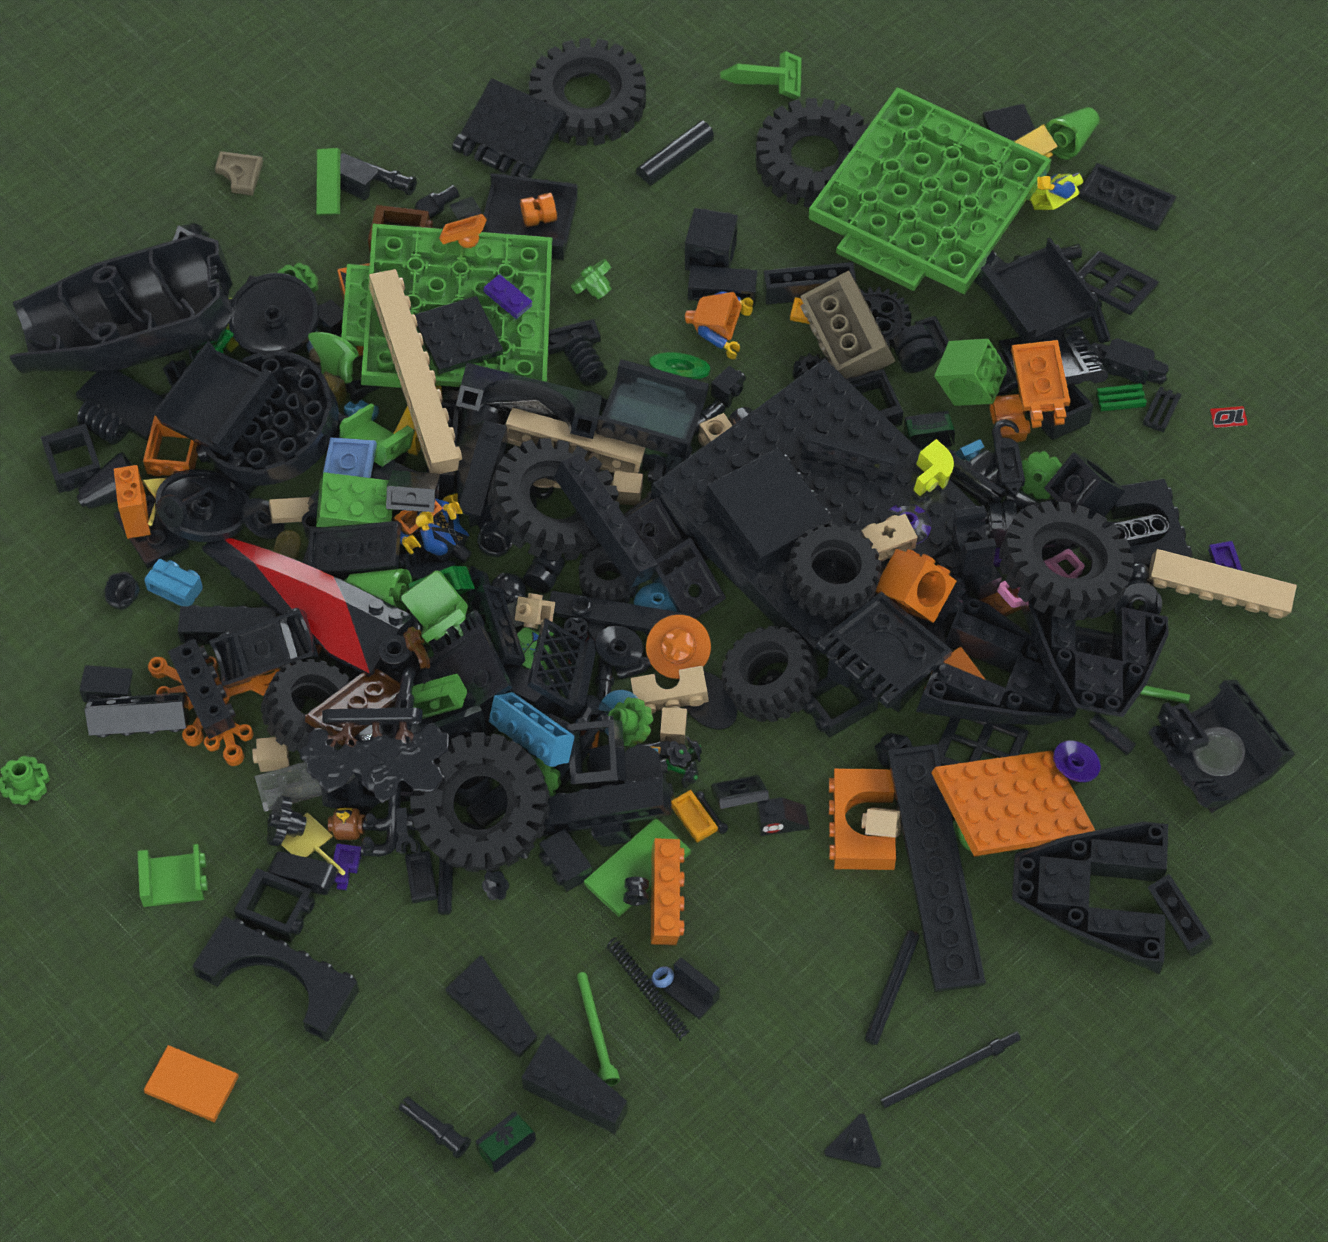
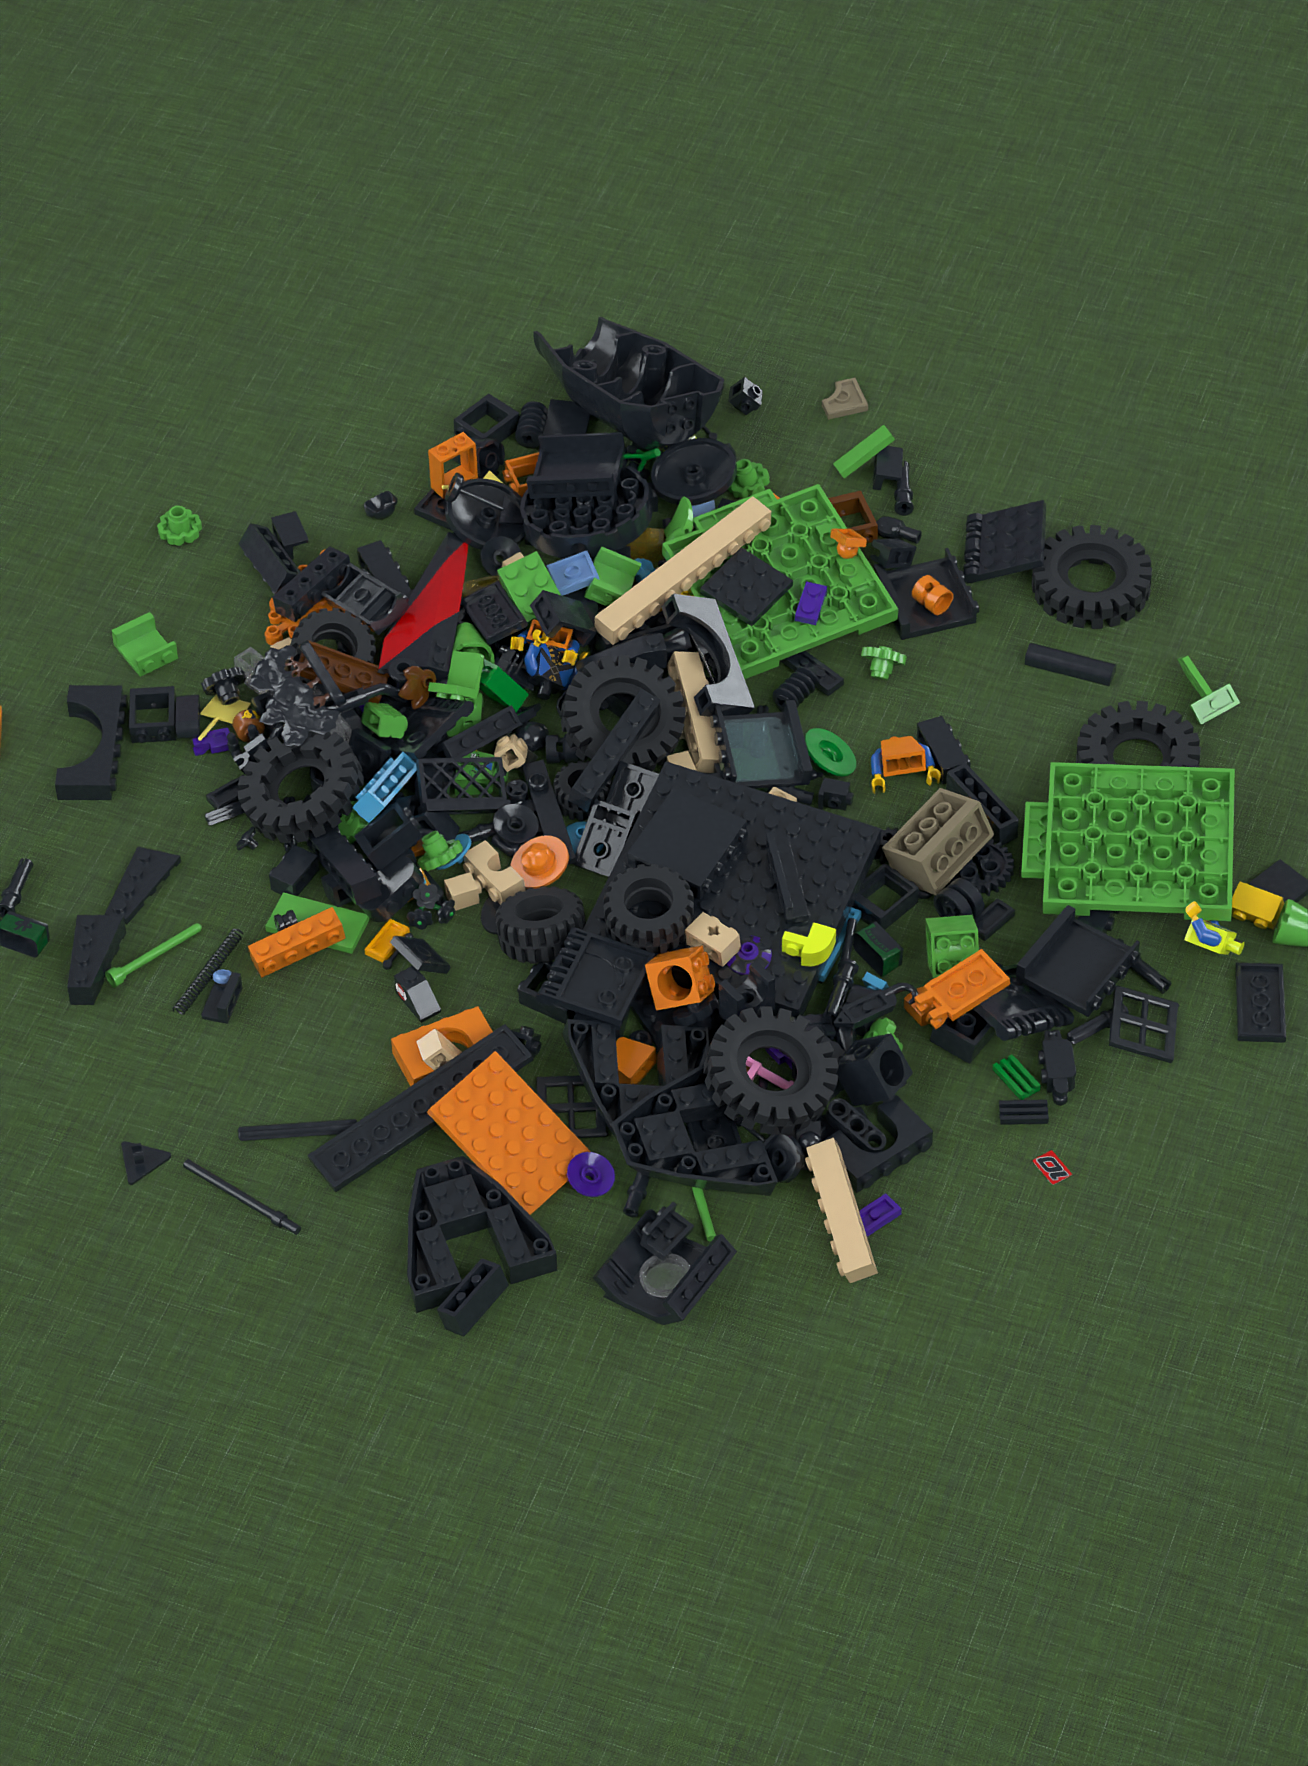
camera: 65 degrees right, 10 degrees down
(173, 583) = (407, 533): dark azure brick -> none
(711, 239) = (978, 719): black brick -> none

